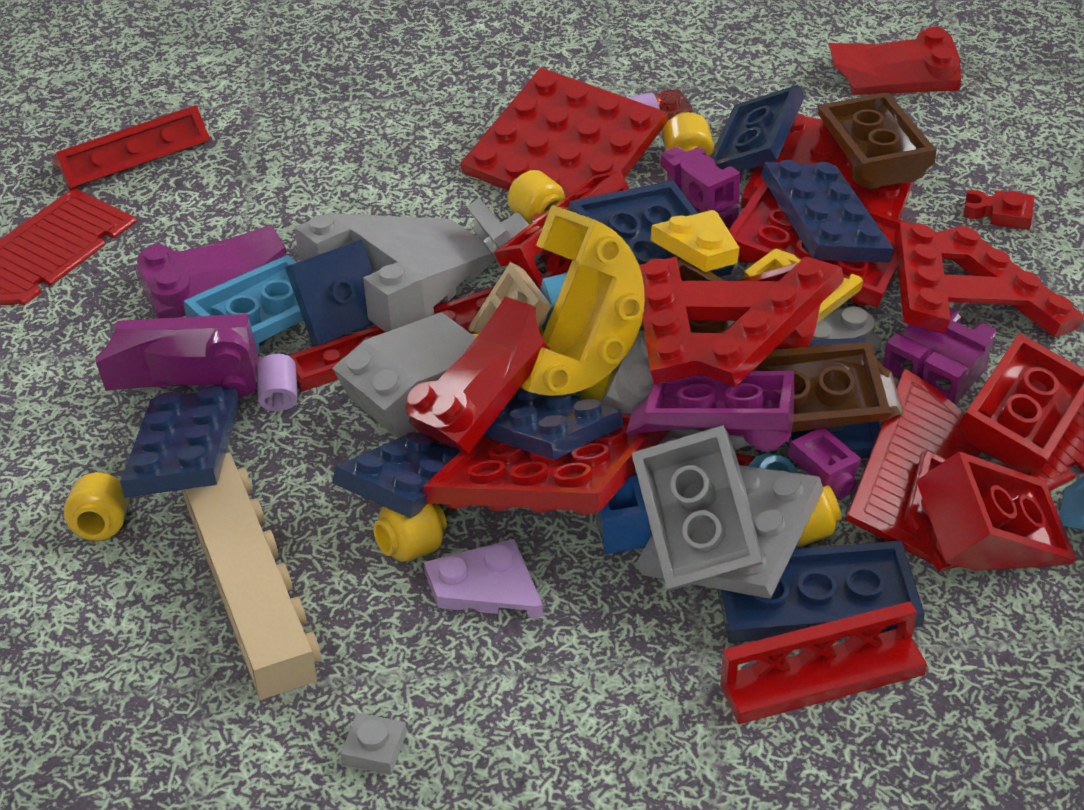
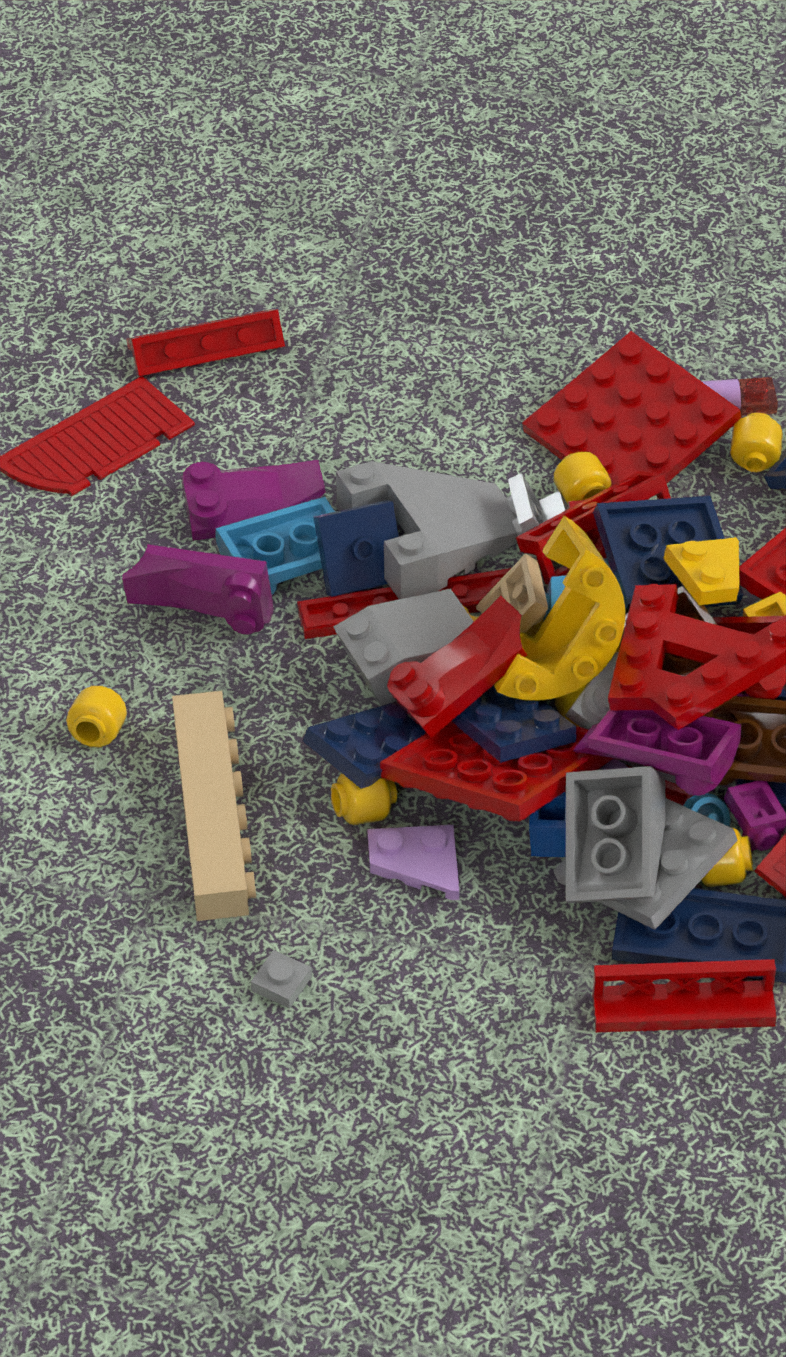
camera: 15 degrees right, 5 degrees up
(181, 442) = (183, 670): dark blue plate -> none
(277, 382) = (282, 627): lavender piece -> none
(704, 182) = (742, 507): magenta hips -> none

